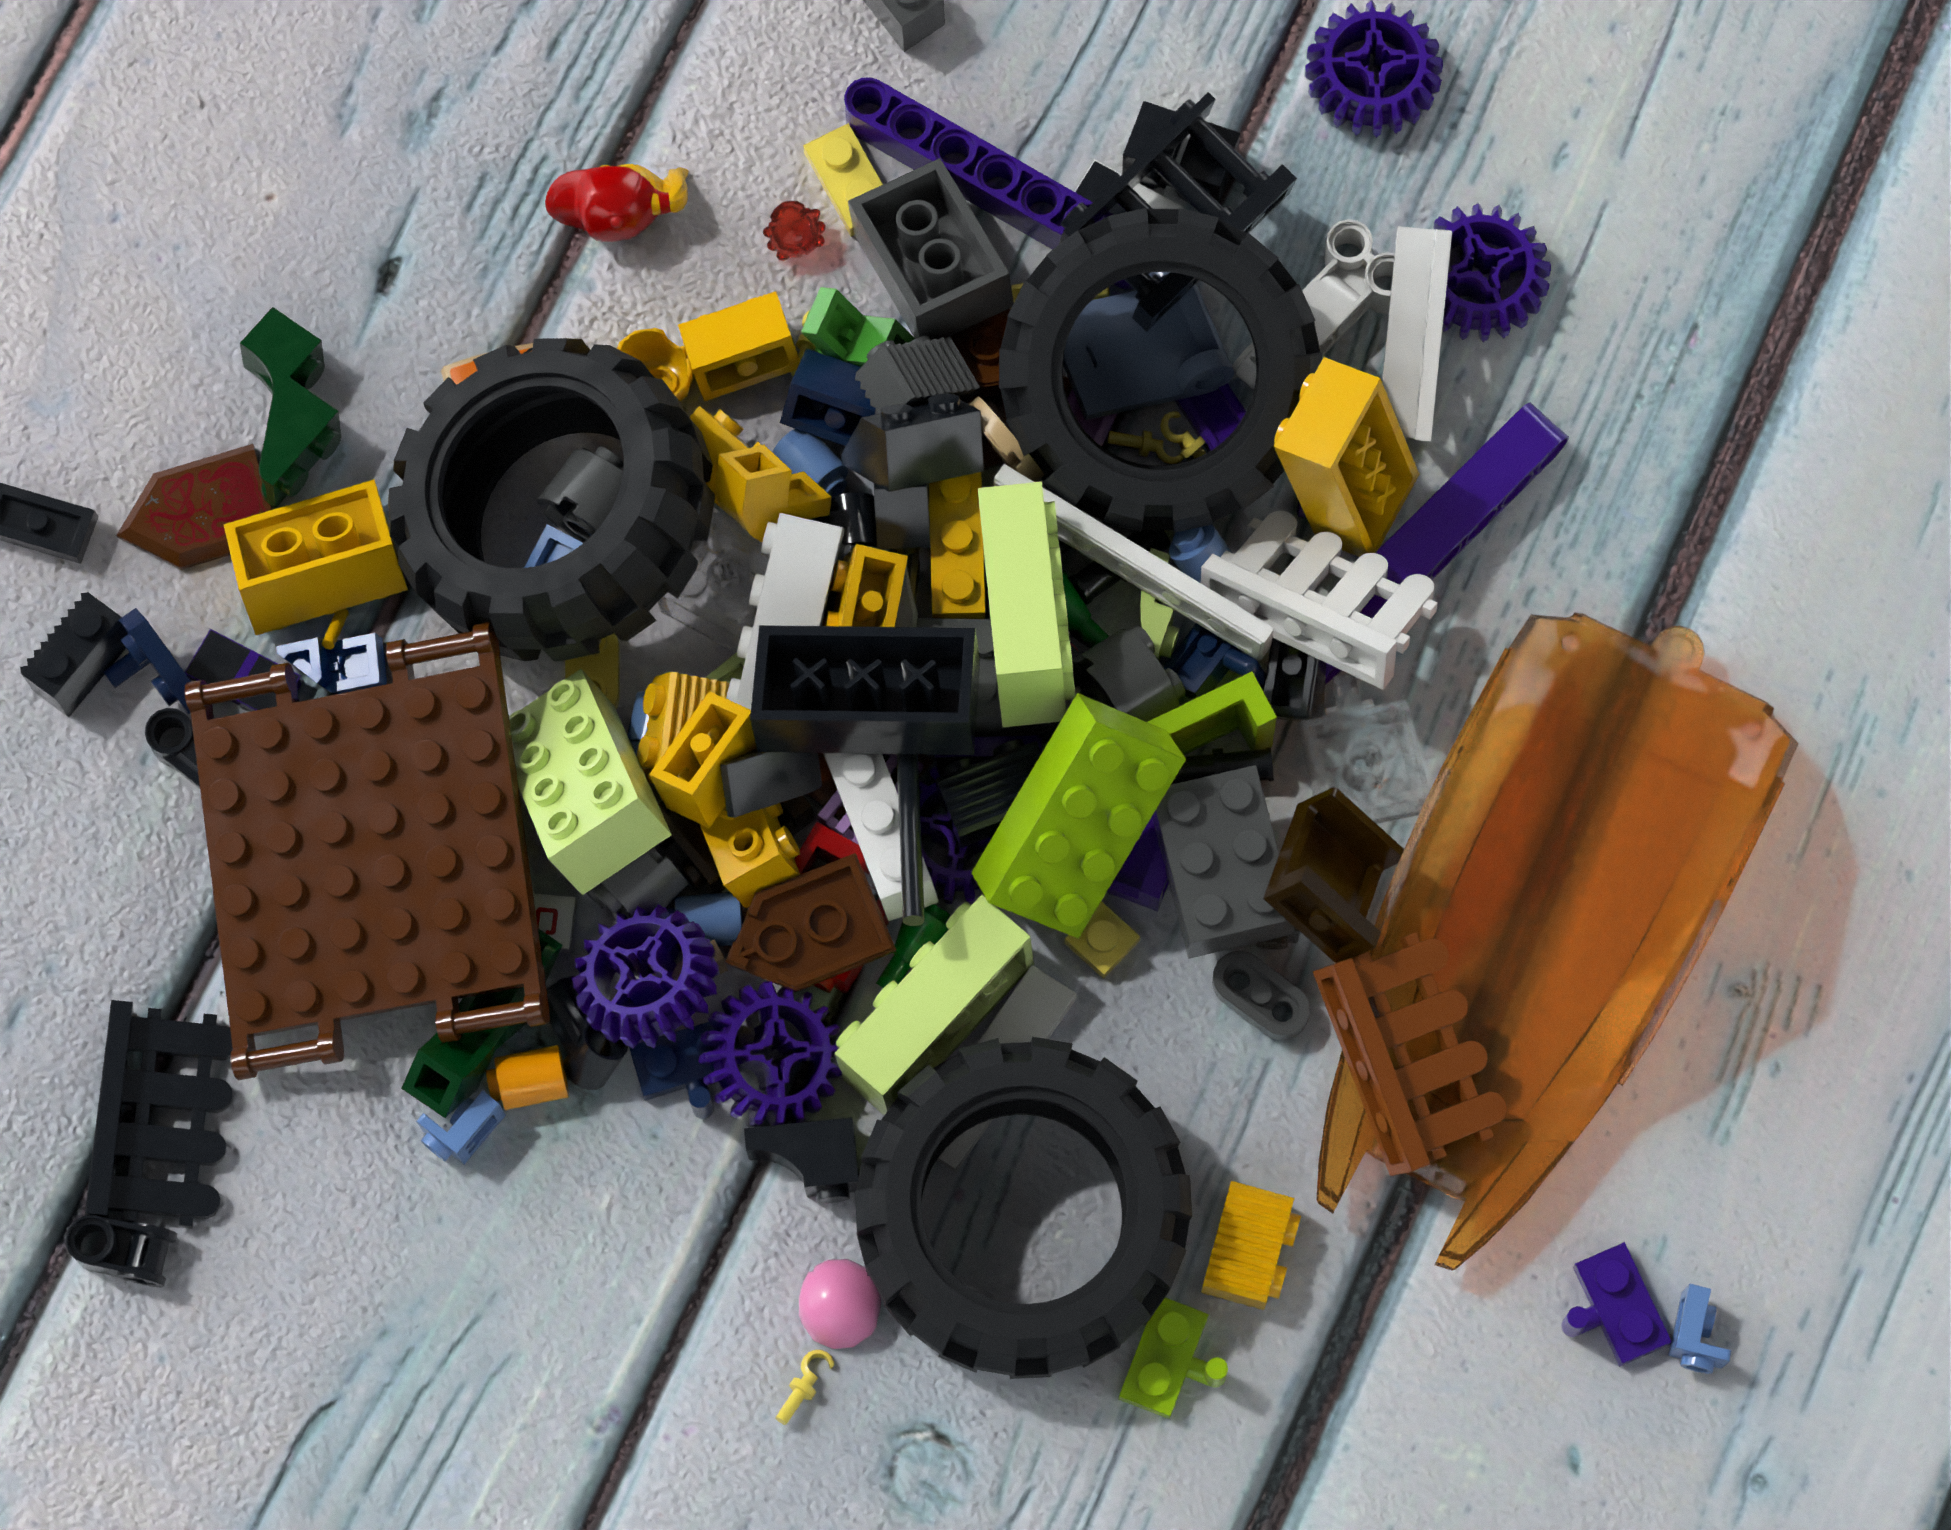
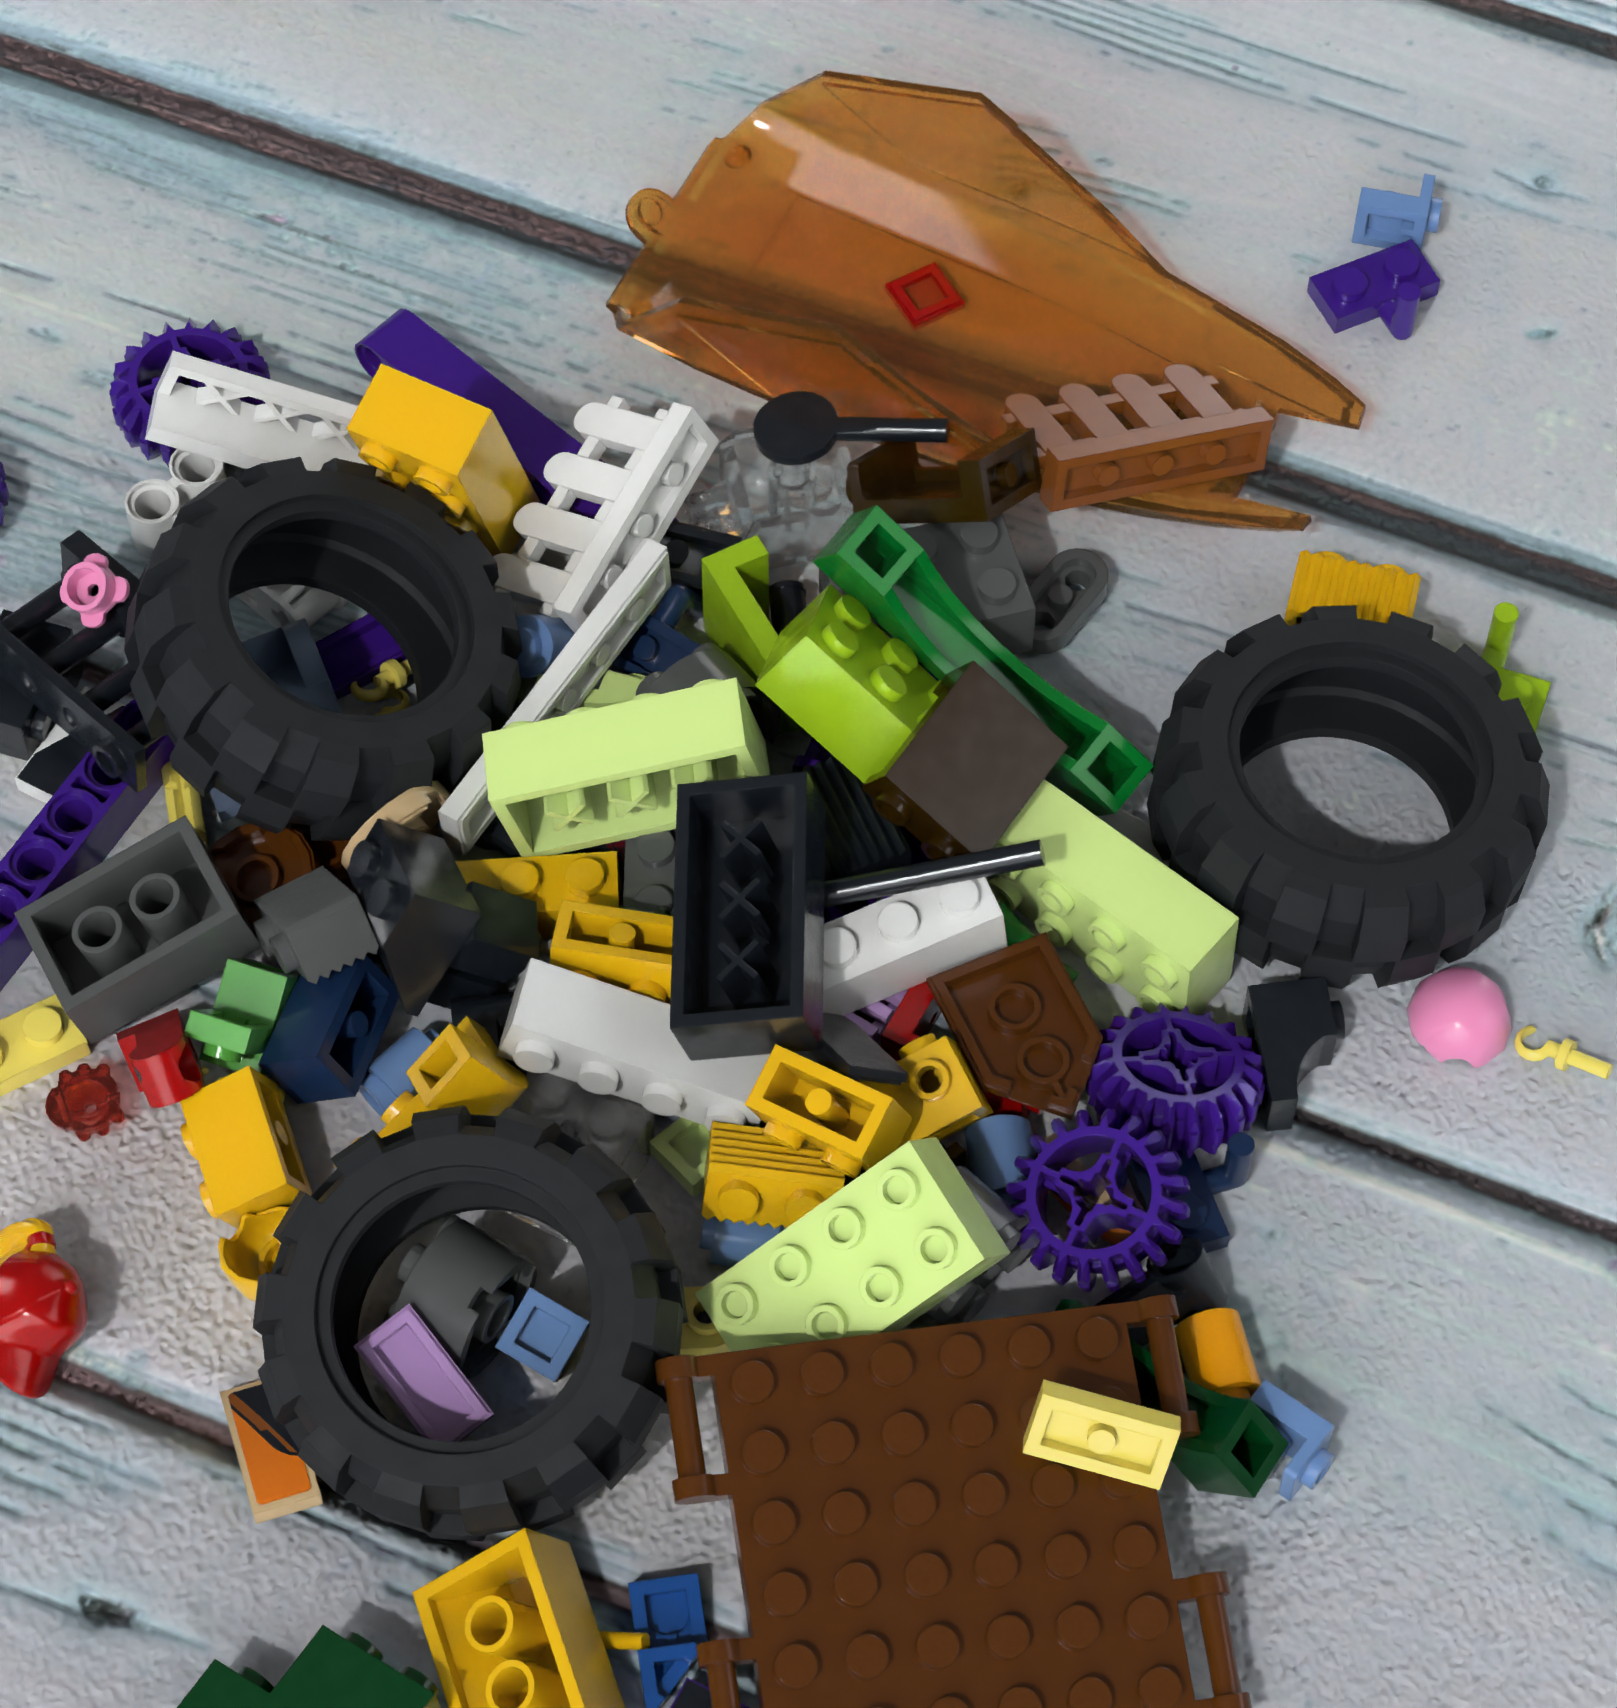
camera: 95 degrees left, 15 degrees down
(416, 962) = (1101, 1434): none -> light yellow plate
(520, 473) = (423, 1378): none -> lavender tile
(800, 275) = (162, 1059): none -> red leg
(1016, 873) = (965, 766): none -> dark brown panel
(1167, 824) = (913, 603): none -> green arch
(1227, 190) = (78, 586): none -> bright pink plate
(1400, 760) = (806, 426): none -> black piece
(1600, 921) = (952, 300): none -> red tile

